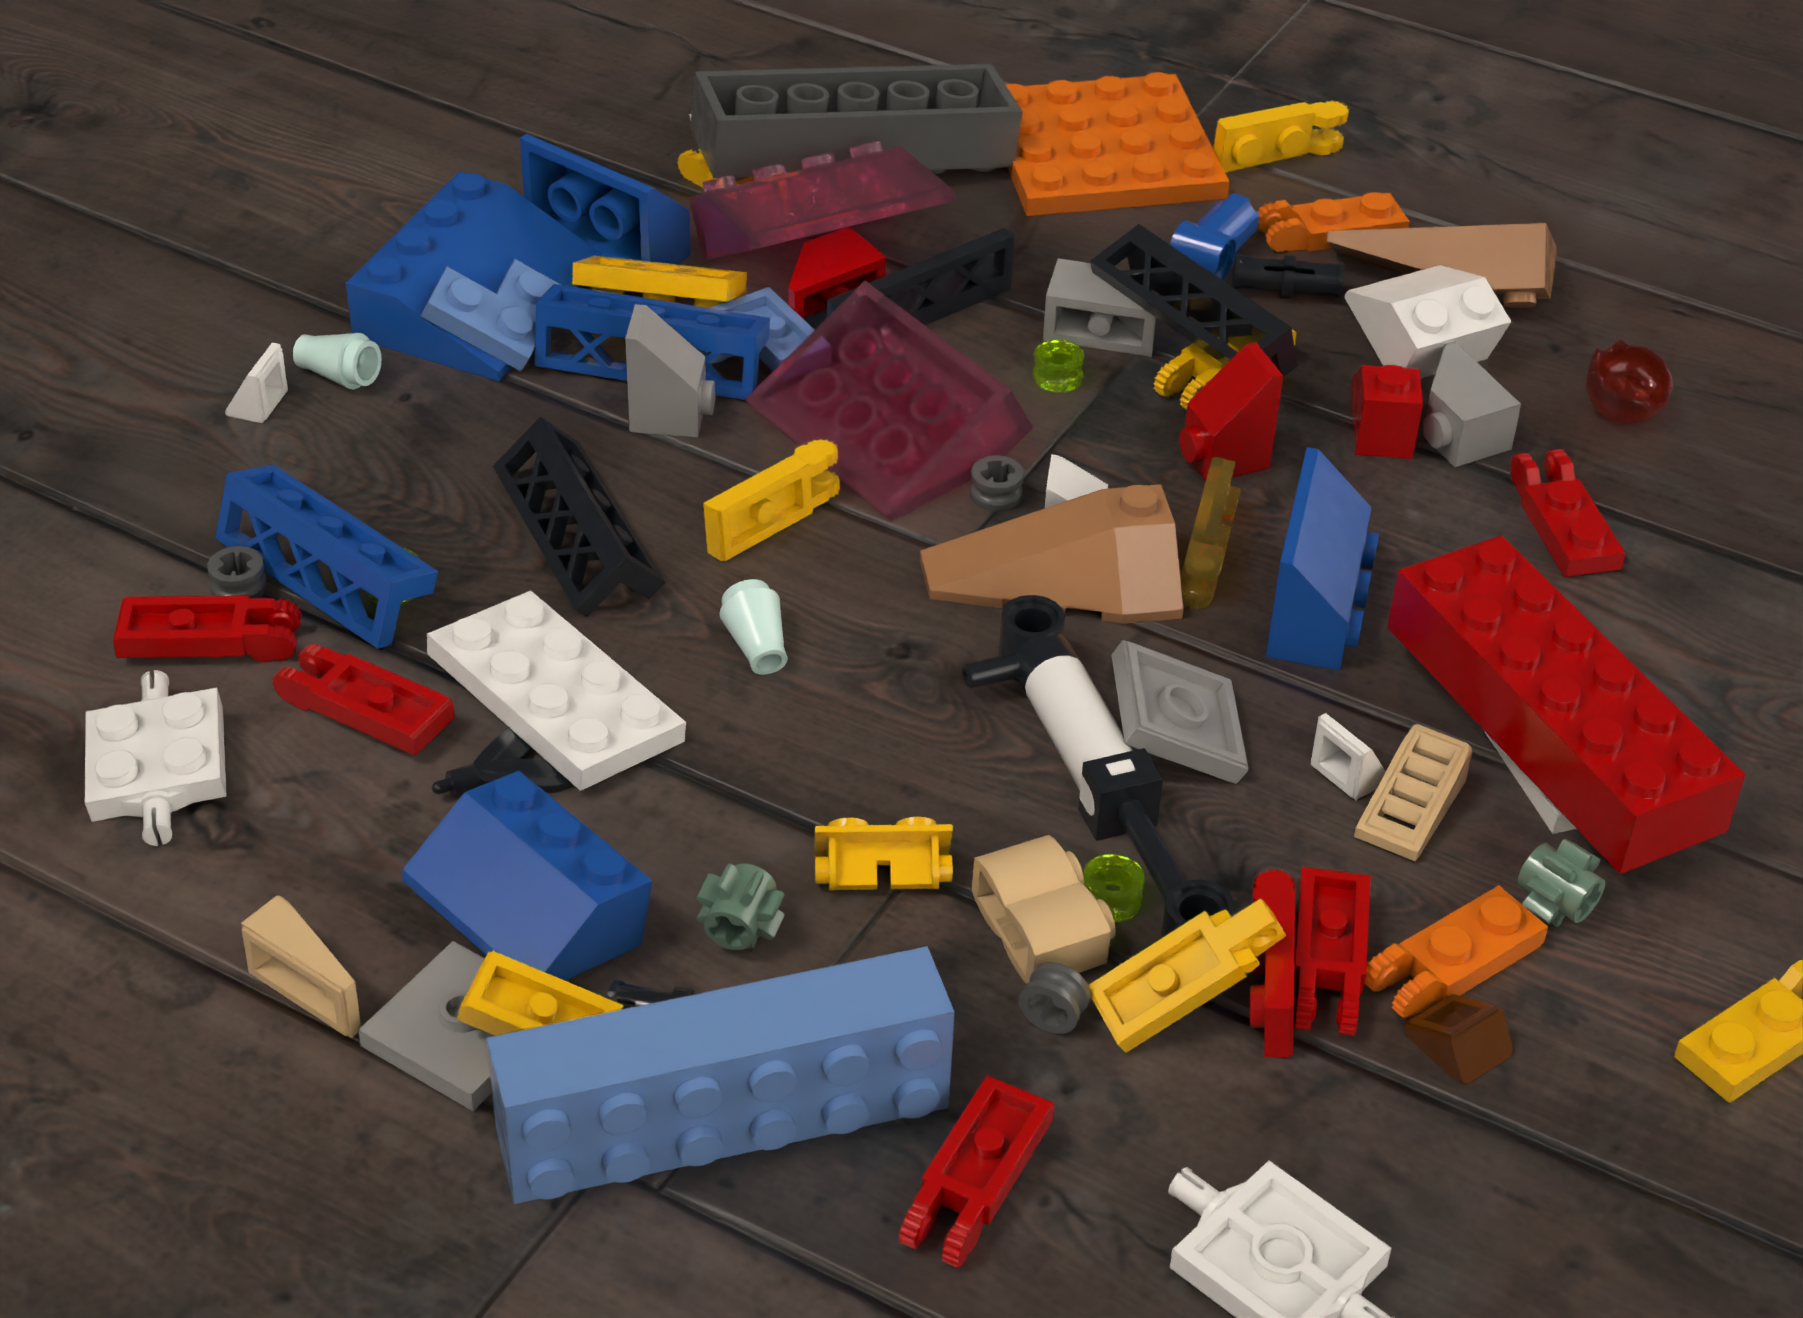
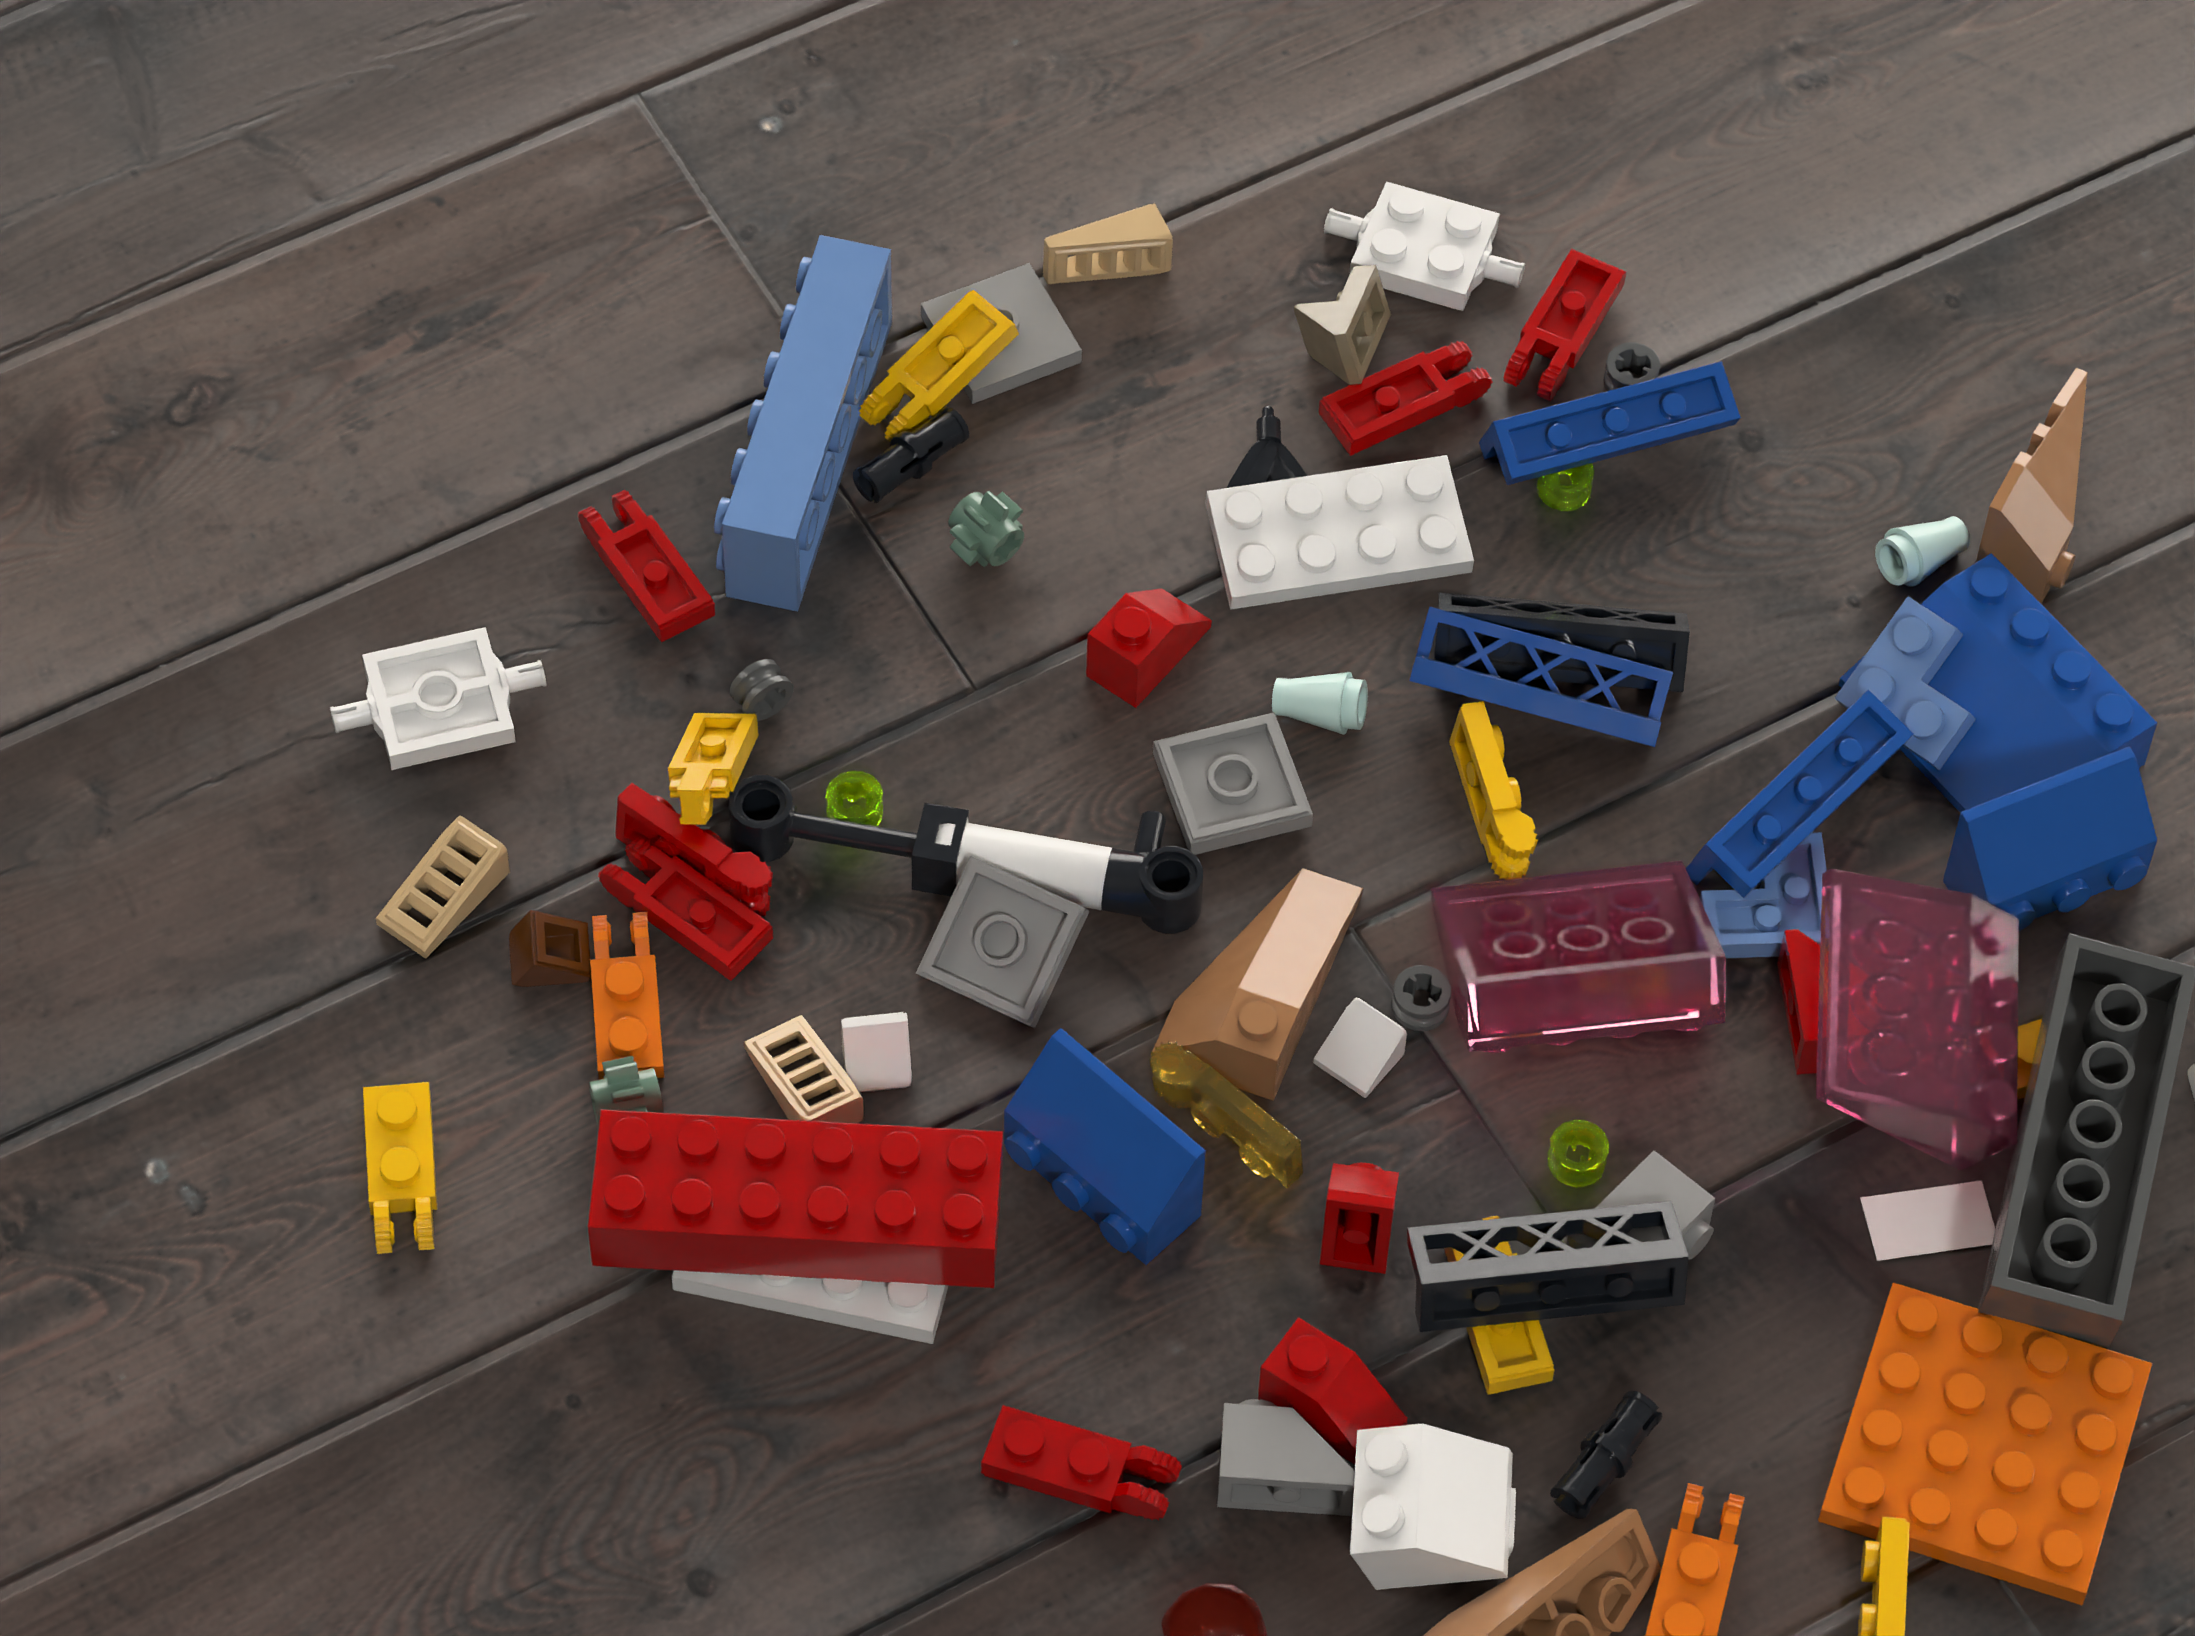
camera: 120 degrees right, 15 degrees up
(232, 303) = (2035, 504): none -> medium nougat wedge
(261, 388) = (1906, 477): white slope -> none
(325, 734) = (1347, 330): none -> dark tan slope
(530, 880) = (1097, 408): blue slope -> none
(652, 495) = (1537, 700): none -> blue fence
(660, 280) = (1914, 842): yellow plate -> none
(664, 378) = (1708, 762): light grey slope -> none
(780, 753) = (1142, 642): none -> red slope
(887, 650) = (1232, 783): none -> light grey plate
(913, 848) = (1001, 648): yellow hinge -> none
(944, 281) = (1768, 1080): black fence -> none
(960, 220) = (1929, 1220): none -> white sticker
(1041, 908) = (853, 726): tan brick -> none
(1217, 234) = (1704, 1405): blue piece -> none
(1435, 1149) = (466, 853): none -> tan slope

